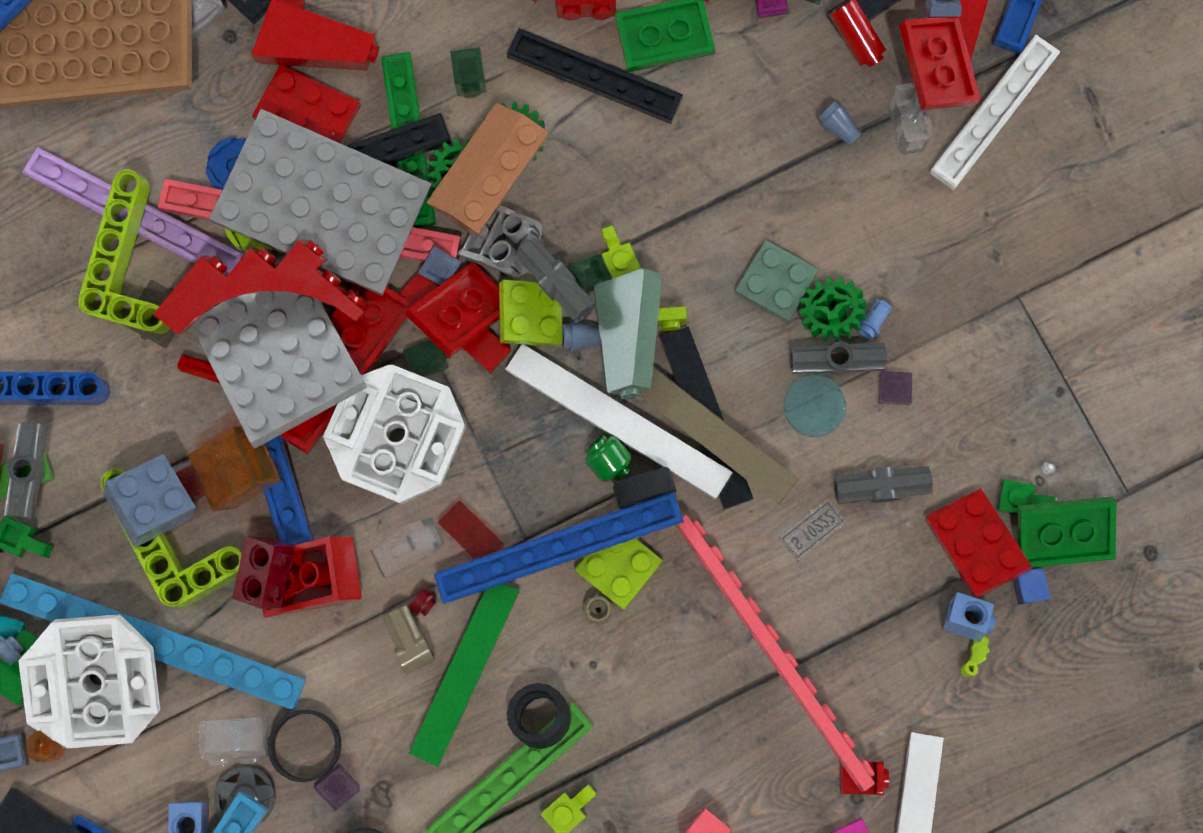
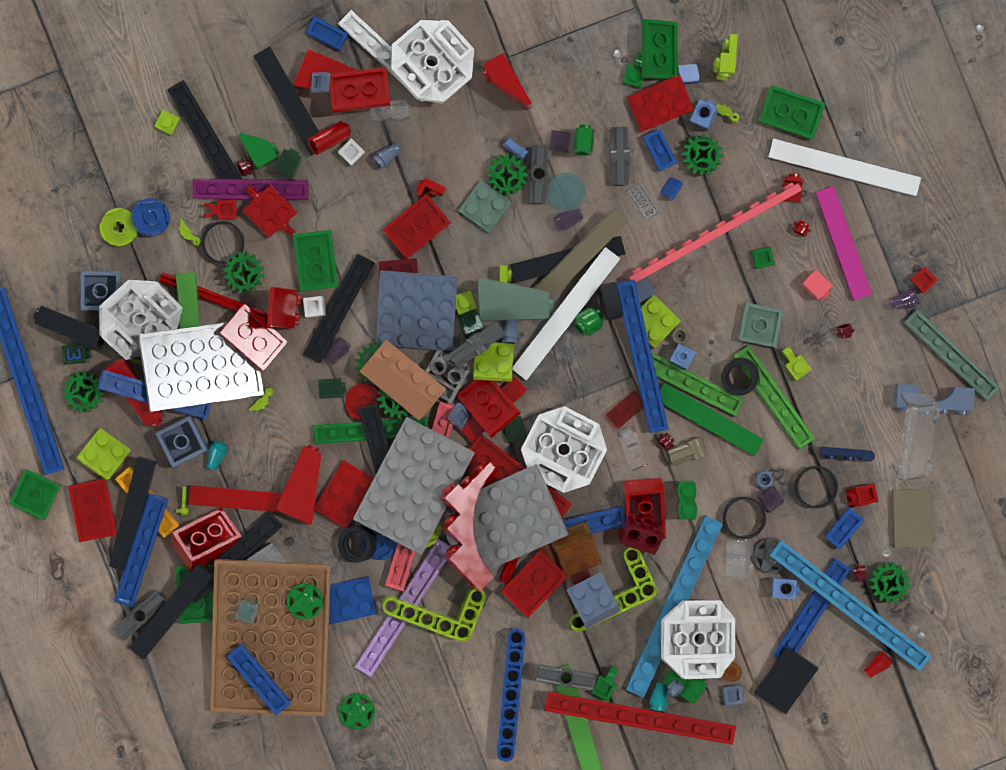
camera: 80 degrees left, 10 degrees up
(129, 52) = (305, 601): none -> green wheel
(141, 131) = (351, 600): none -> blue plate
(178, 408) = (534, 583): none -> red plate
(221, 115) = (343, 544): none -> black tyre
(335, 642) = (686, 506): none -> green brick
(364, 779) = (764, 474): none -> sand blue plate
(459, 117) = (360, 396): none -> red tile
(519, 644) = (696, 385): none -> bright green tile
(528, 78) = (337, 350): none -> clear purple cone
(564, 615) = (682, 356): none -> medium blue brick
(593, 37) = (314, 306): none -> white plate
(601, 185) = (416, 310): none -> sand blue plate
(628, 744) = (760, 325): none -> sand green plate
(663, 155) = (401, 265): none -> dark red brick
(669, 543) = (644, 289): none -> sand blue tile
(734, 178) = (416, 226): none -> red plate
(741, 738) = (763, 257): none -> green tile
(771, 411) = (567, 219): none -> clear purple cone
(796, 198) = (434, 188): none -> red bracket
(798, 800) = (801, 228): none -> red plate
(839, 71) = (351, 152): none -> white plate
(839, 575) = (671, 188): none -> blue slope
(901, 549) = (660, 150): none -> blue plate
(902, 420) = (583, 140): none -> green brick
(913, 630) = (708, 161): none -> green gear
(991, 765) = (792, 112): none -> green plate
(994, 278) = (504, 79): none -> red slope
(1028, 166) = (434, 42): none -> white piece
(1060, 641) = (726, 61): none -> lime plate

